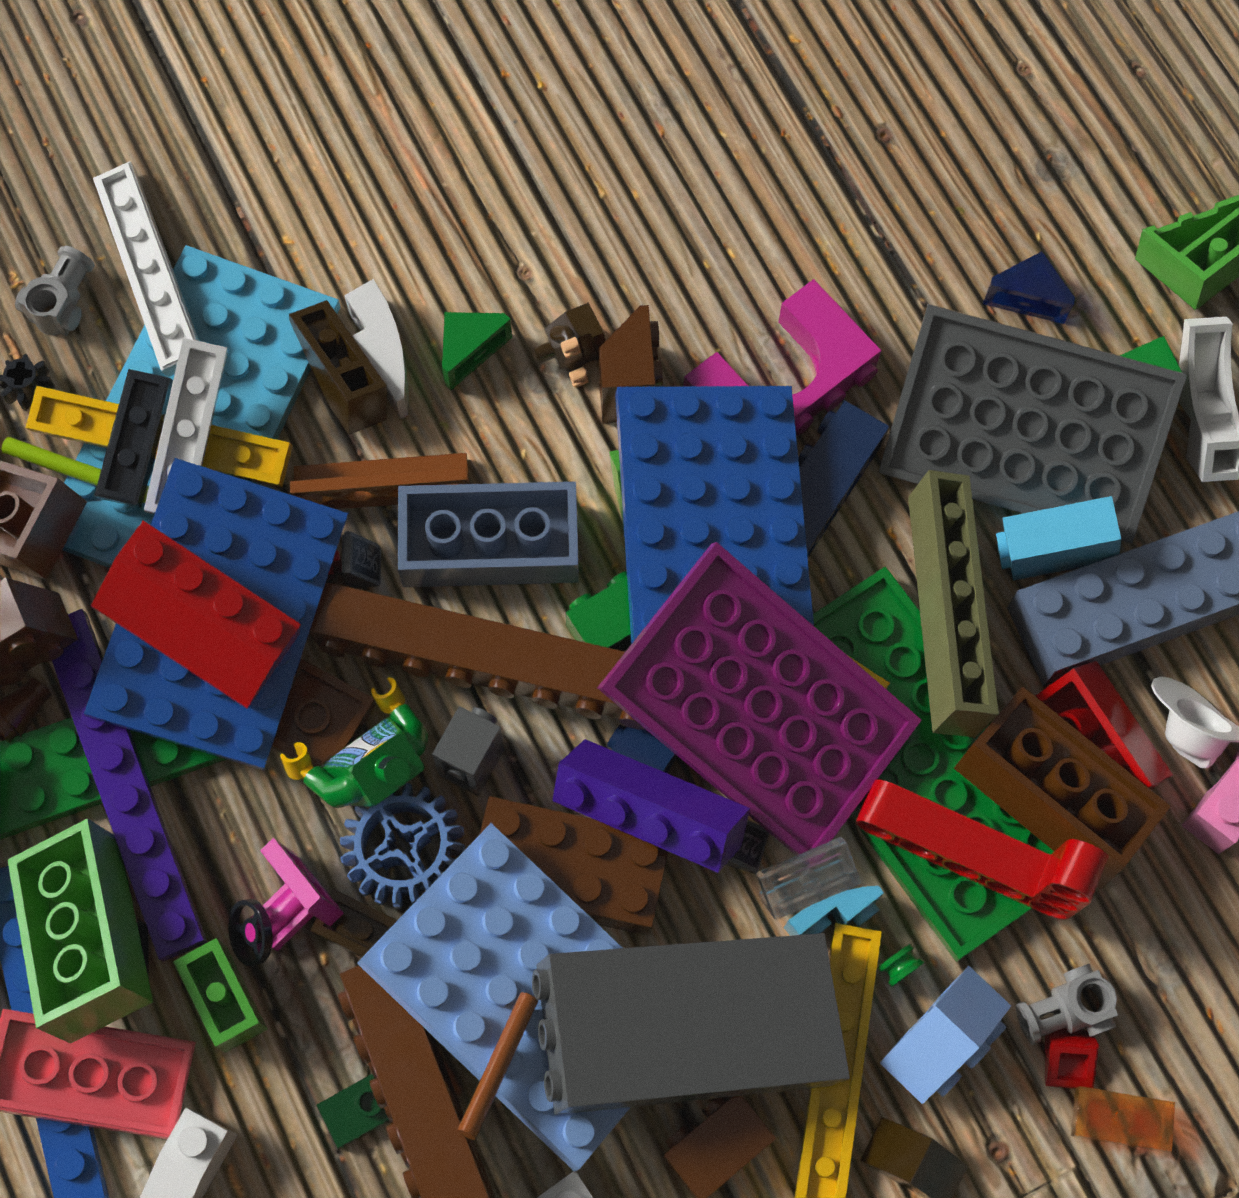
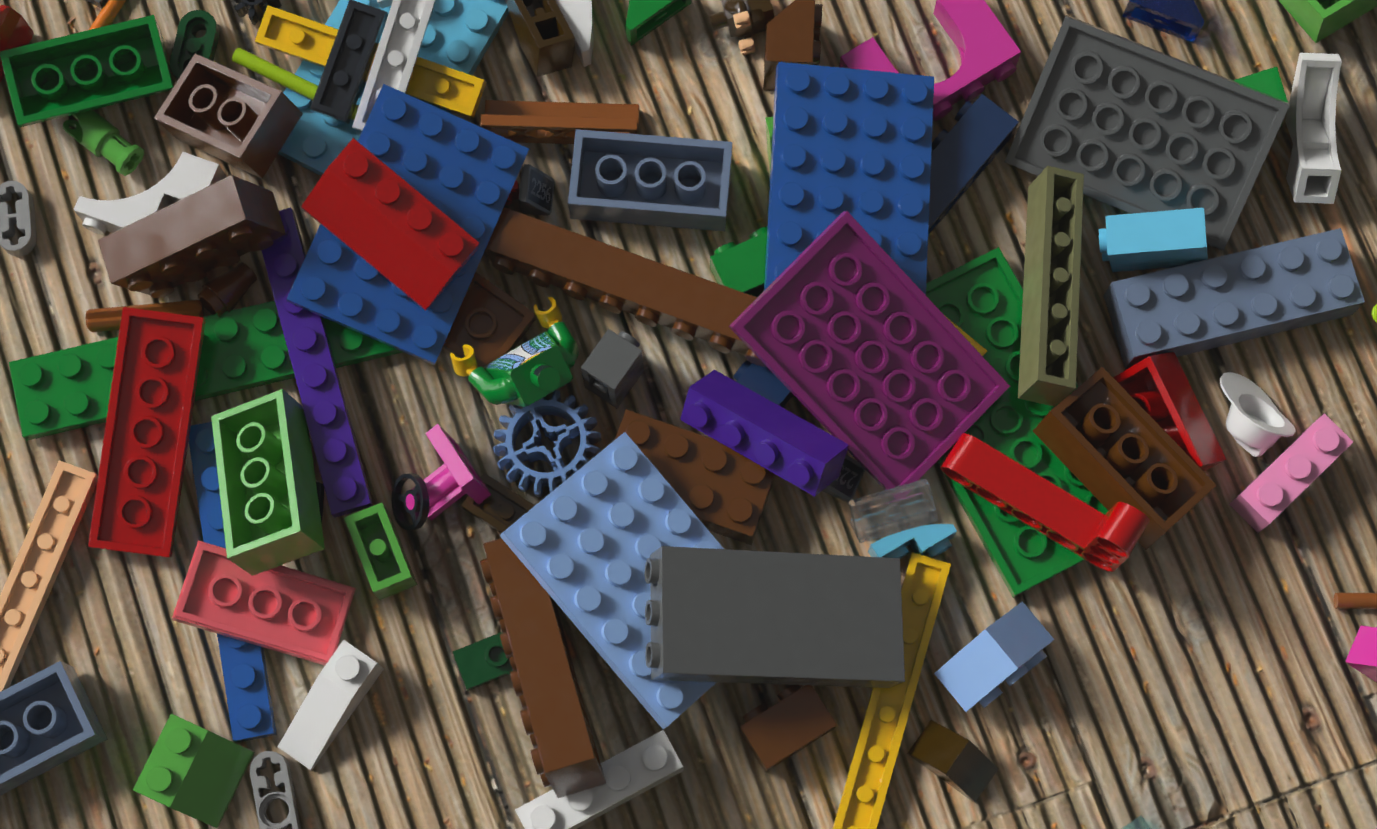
camera: 10 degrees right, 5 degrees up
(497, 1066) = (608, 633): dark orange bar -> none
(901, 965) = (964, 594): green bush -> none
(1068, 1009) = (1103, 647): light grey connector -> none
(1070, 1059) = (1100, 690): red slope -> none
(1123, 1119) = (1137, 745): clear orange plate -> none

